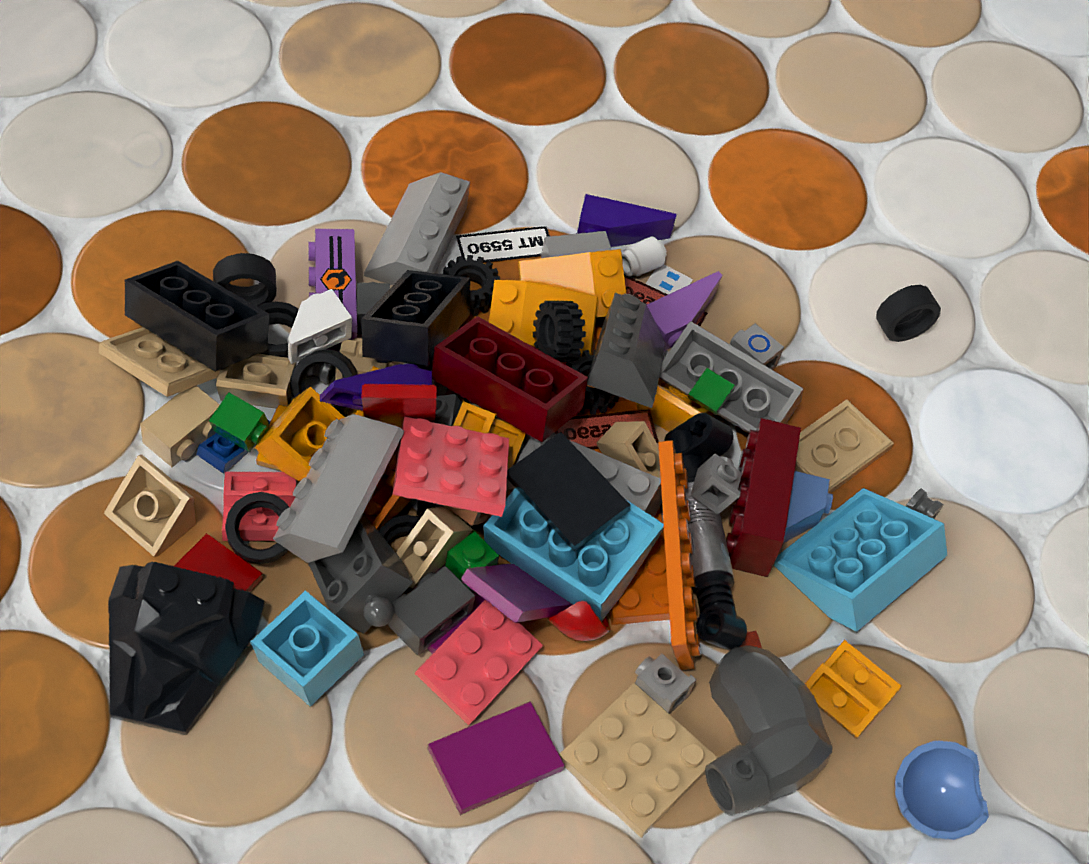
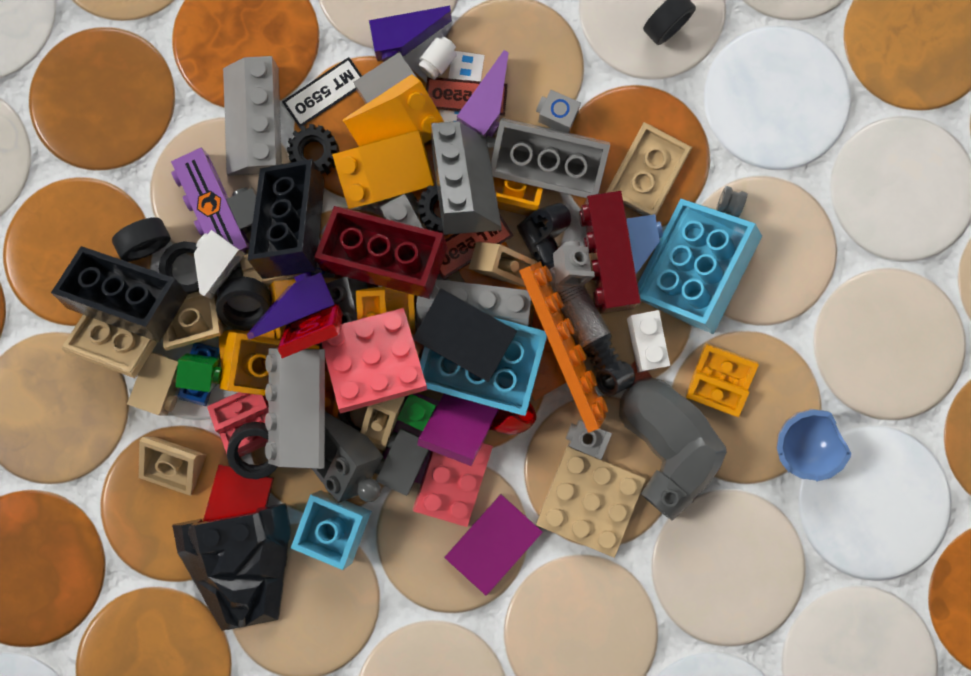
camera: 10 degrees left, 30 degrees up
(559, 330) = (402, 189): black tyre -> none
(711, 391) = (539, 176): green tile -> none
(775, 607) = (648, 341): none -> white brick

